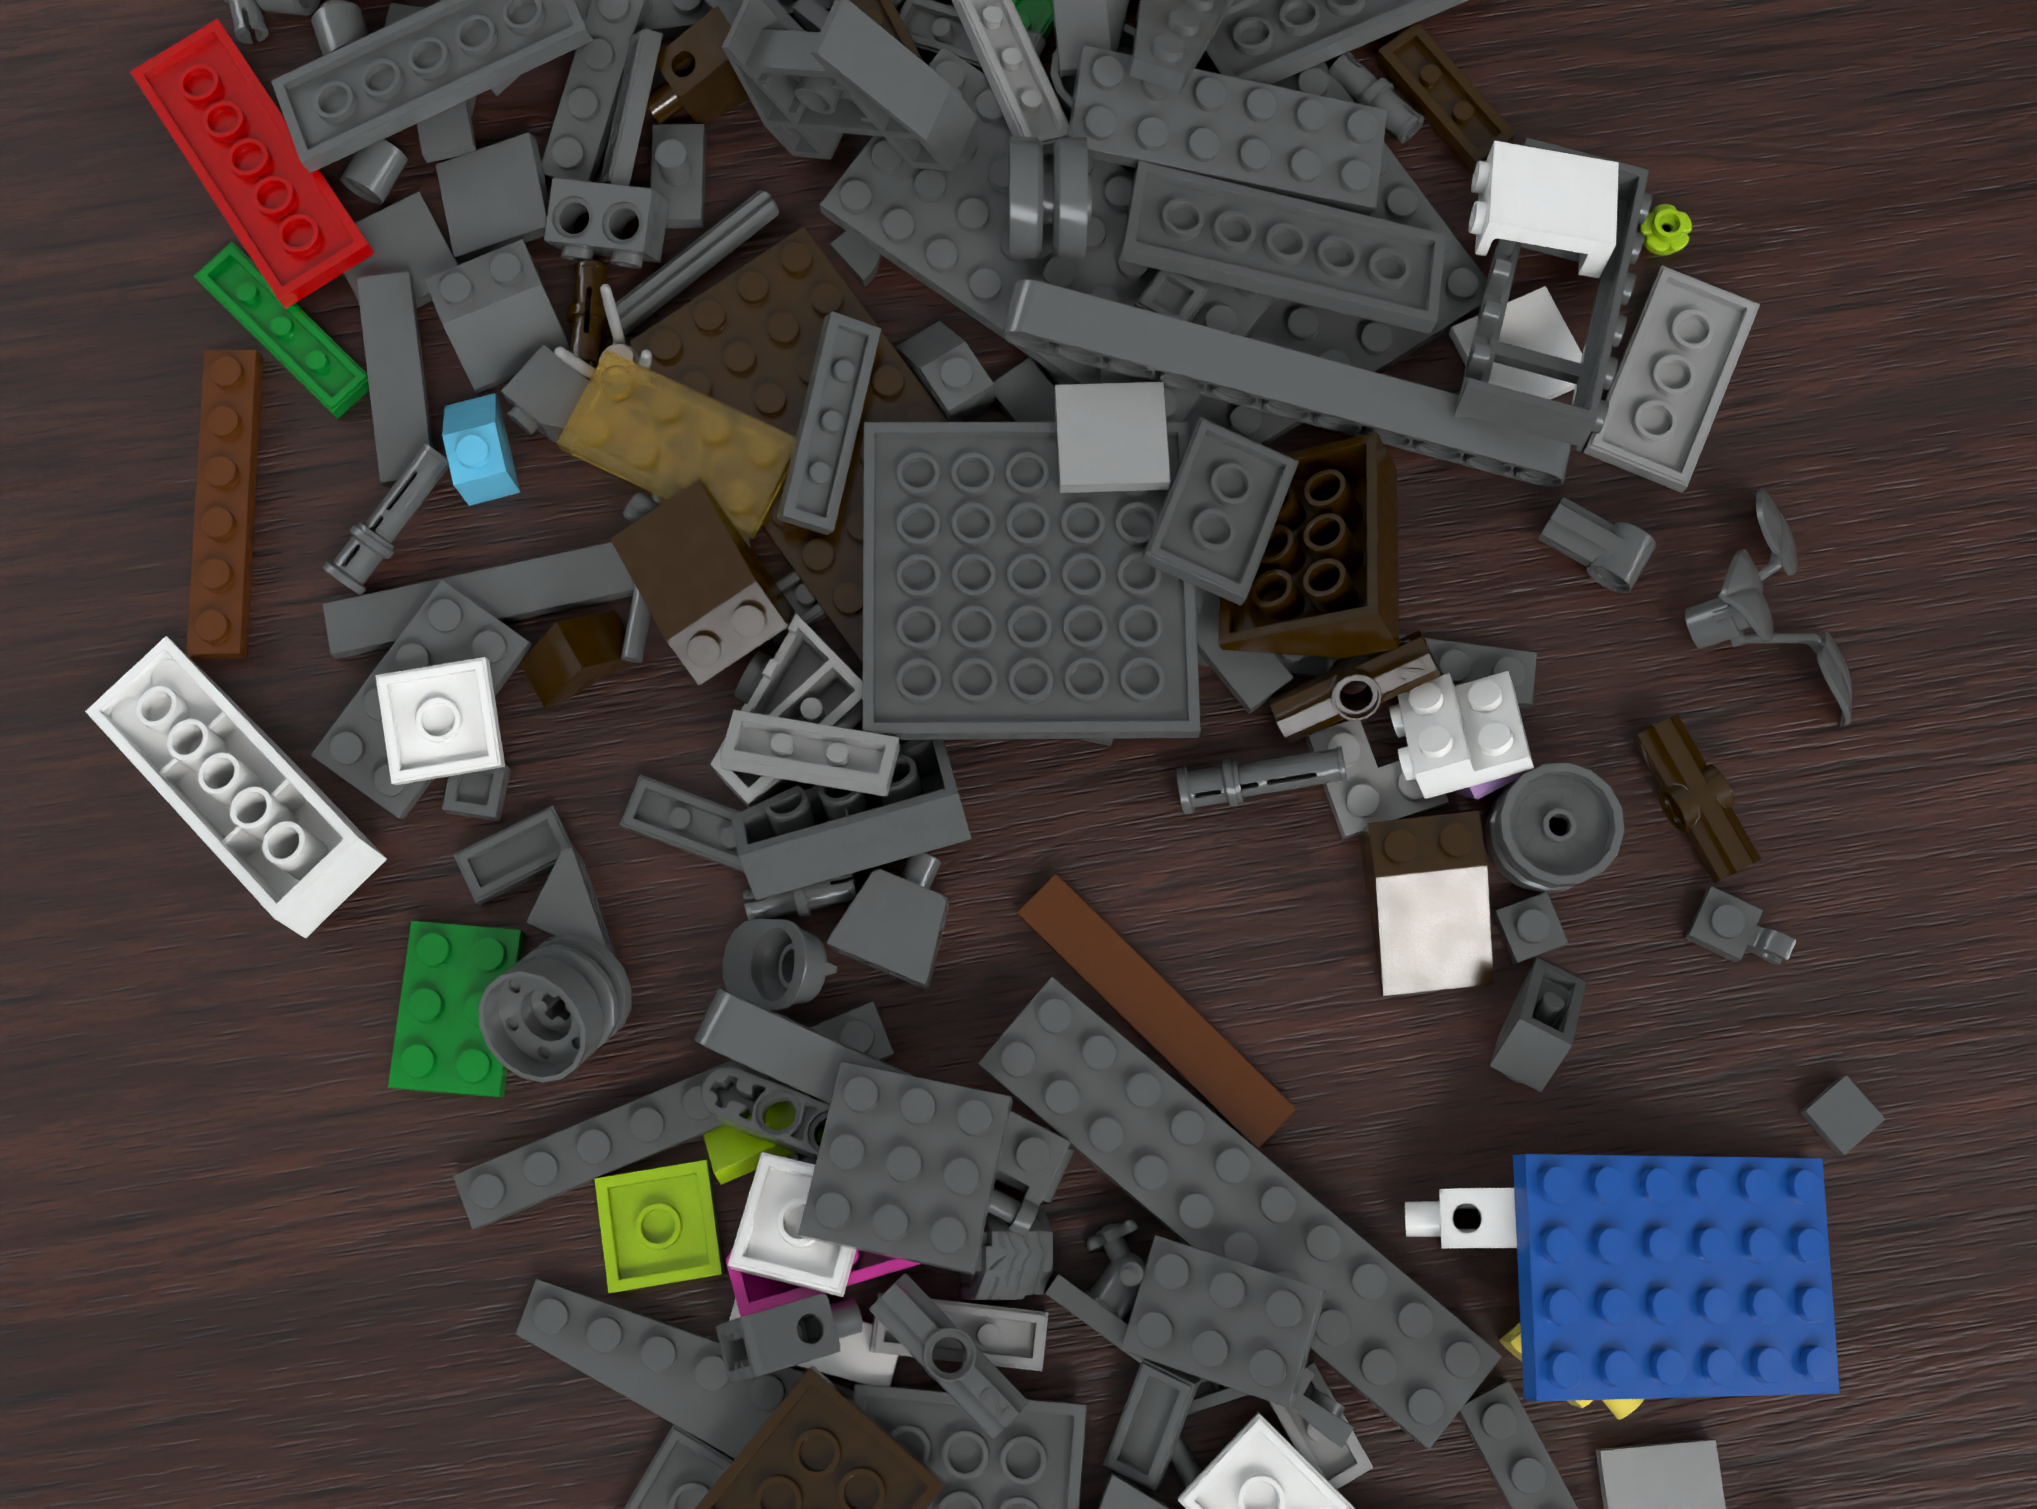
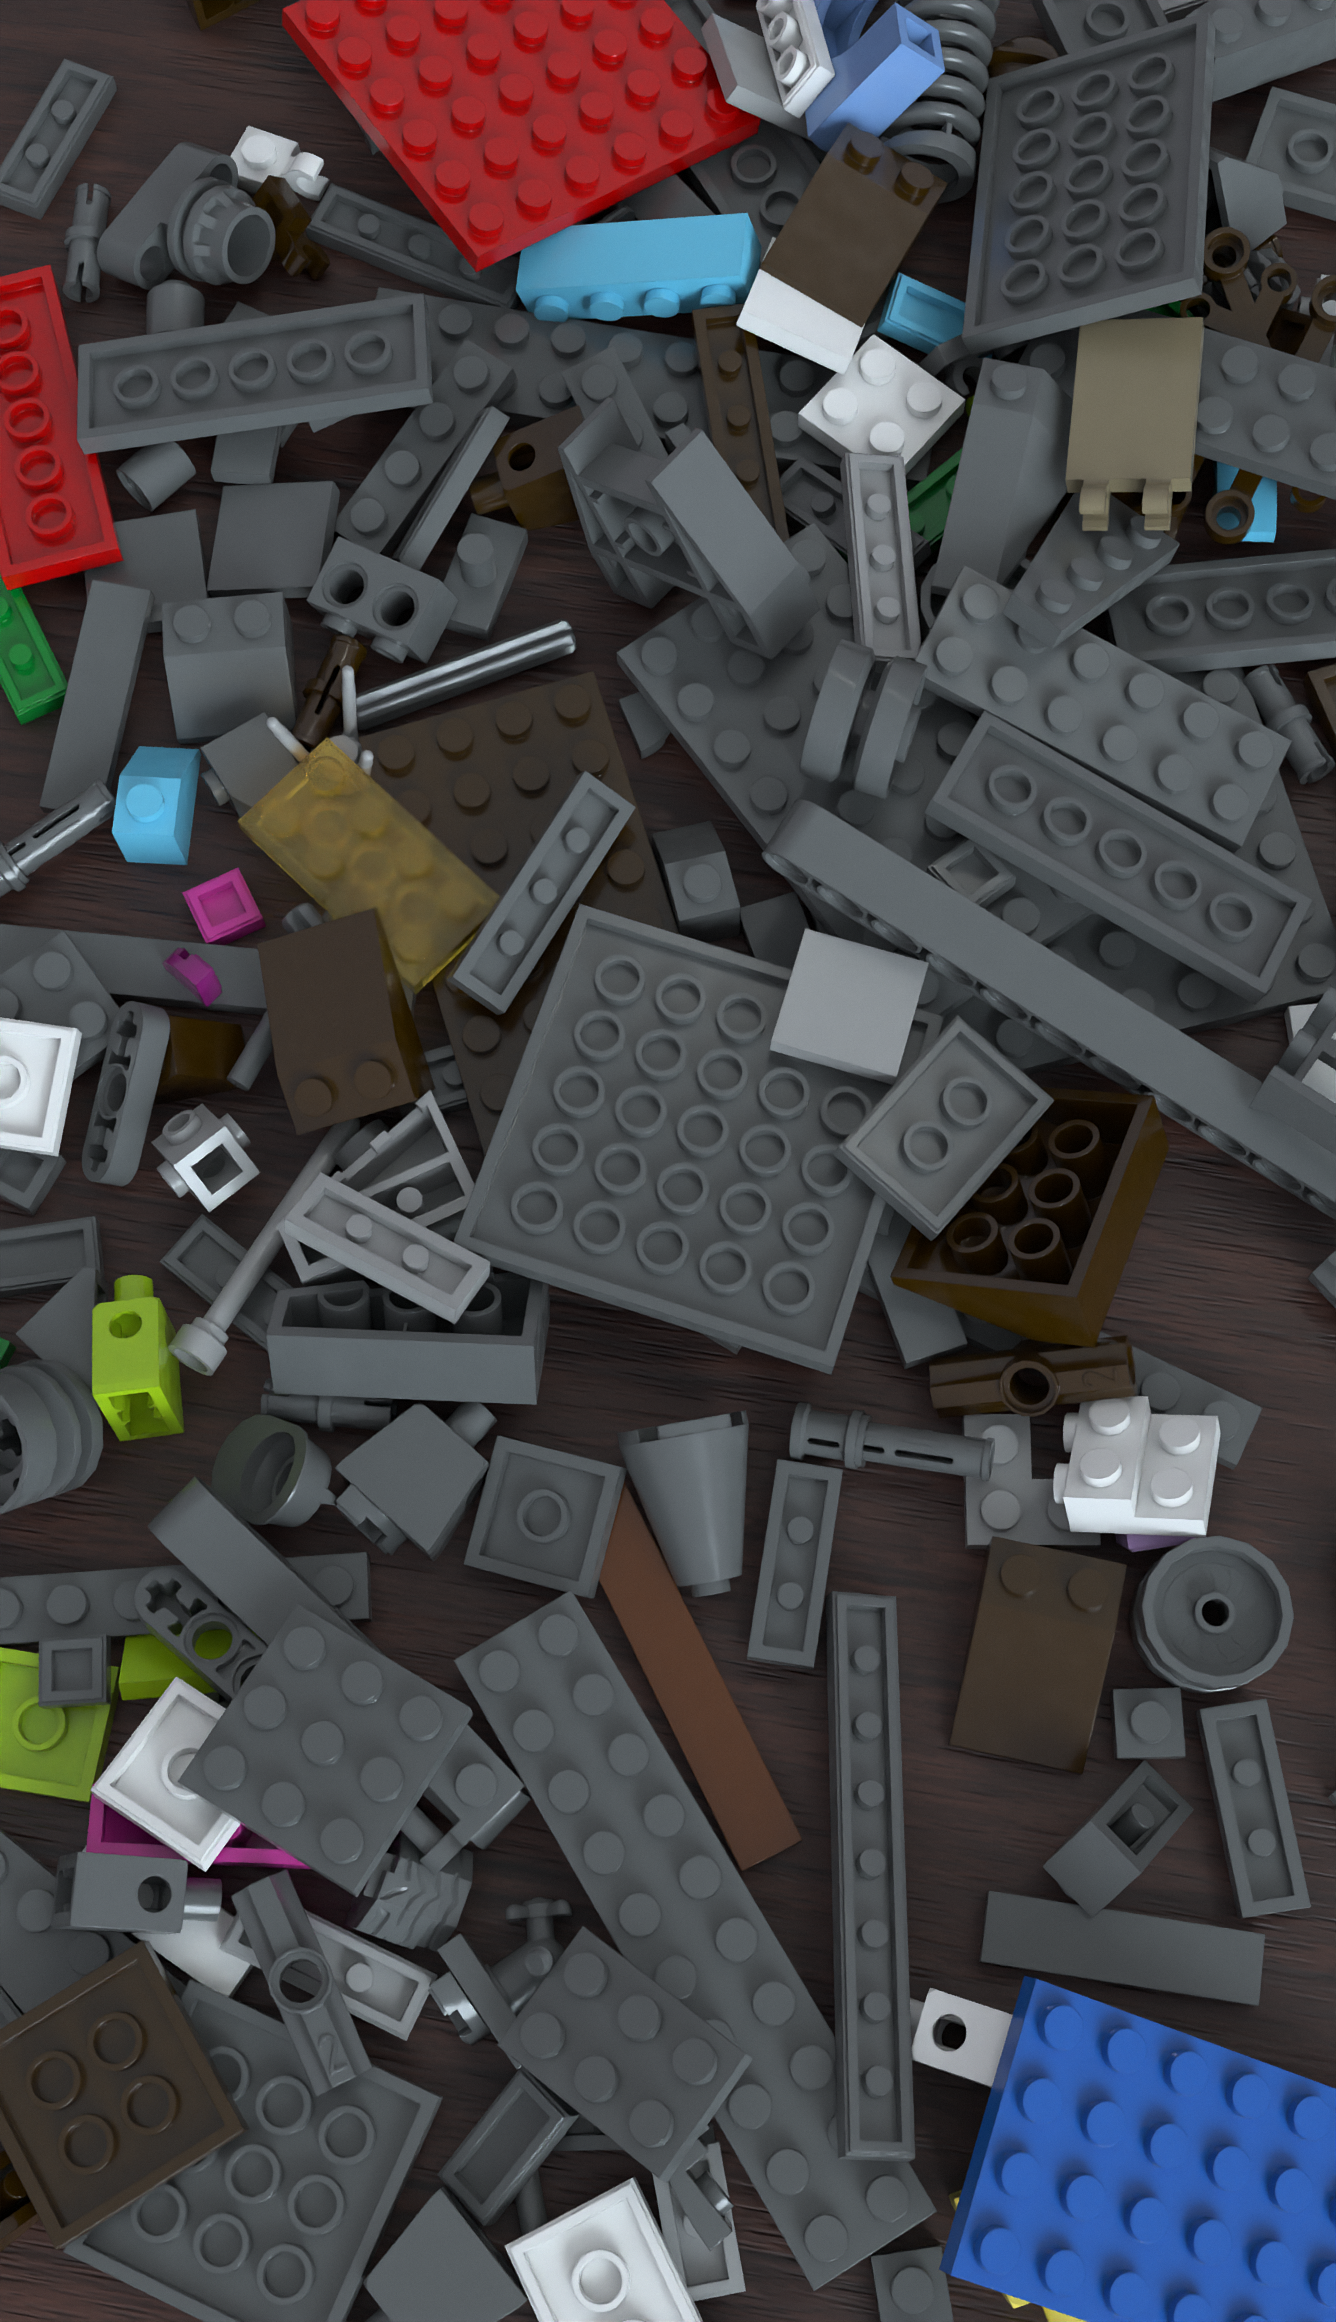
camera: 20 degrees right, 5 degrees down
(541, 663) = (125, 1094): none -> dark grey beam
(563, 581) = (194, 975): none -> magenta tile
(565, 519) = (224, 908): none -> dark pink tile
(627, 727) = (204, 1156): none -> light grey brick
(632, 911) = (131, 1363): none -> lime torso
(673, 1175) = (74, 1671): none -> dark grey tile
(682, 877) = (203, 1342): none -> light grey piece
(867, 975) = (369, 1520): none -> dark grey tile
(1006, 925) = (545, 1516): none -> dark grey tile
(1075, 1332) = (455, 2002): none -> dark grey tile
(1119, 868) = (694, 1495): none -> dark grey cone
(1216, 896) = (795, 1564): none -> dark grey plate
(1361, 1121) = (868, 1881): none -> dark grey tile
(1568, 1107) = (1122, 1948): none -> dark grey tile
(1633, 966) = (1252, 1809): none -> dark grey plate

